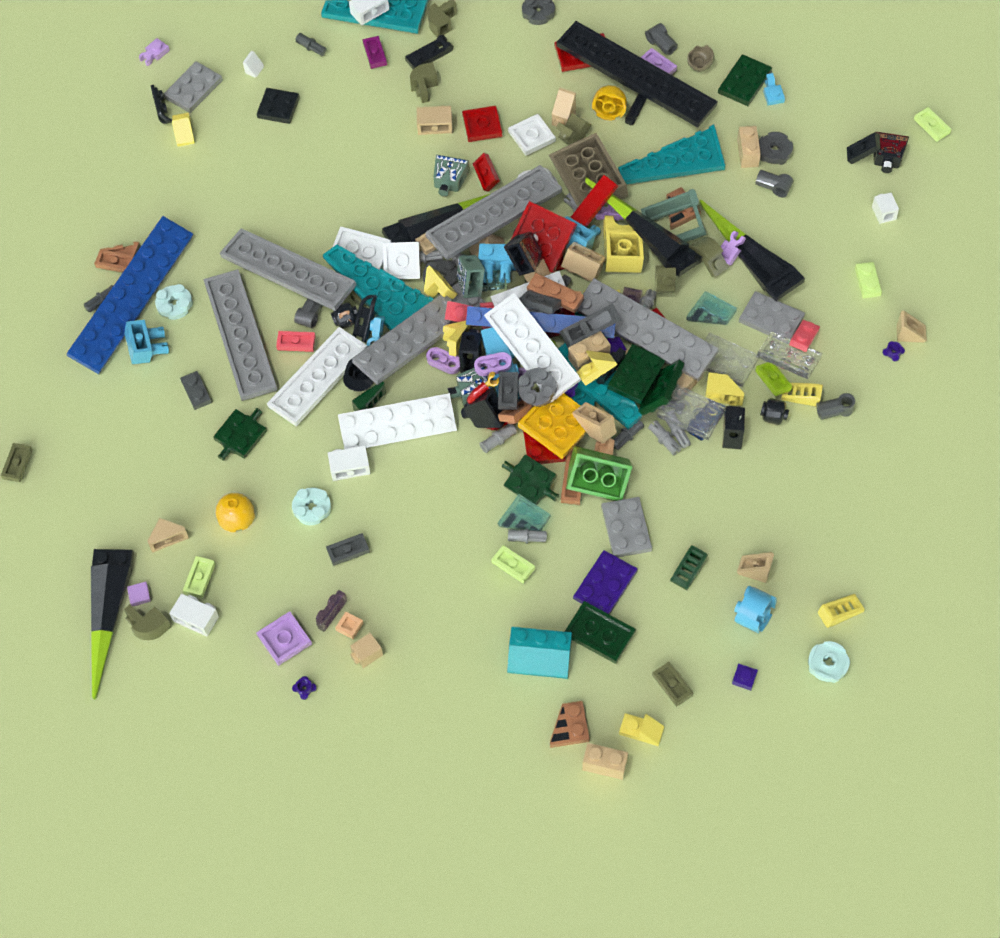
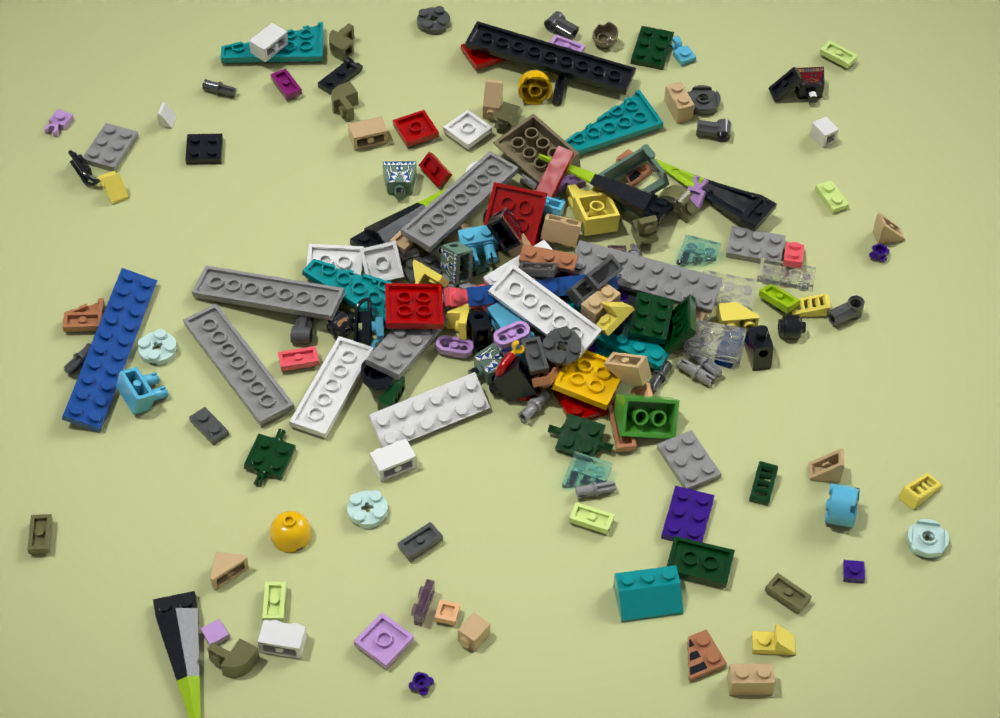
camera: 20 degrees left, 10 degrees down
(414, 313) = (414, 306): none -> red plate

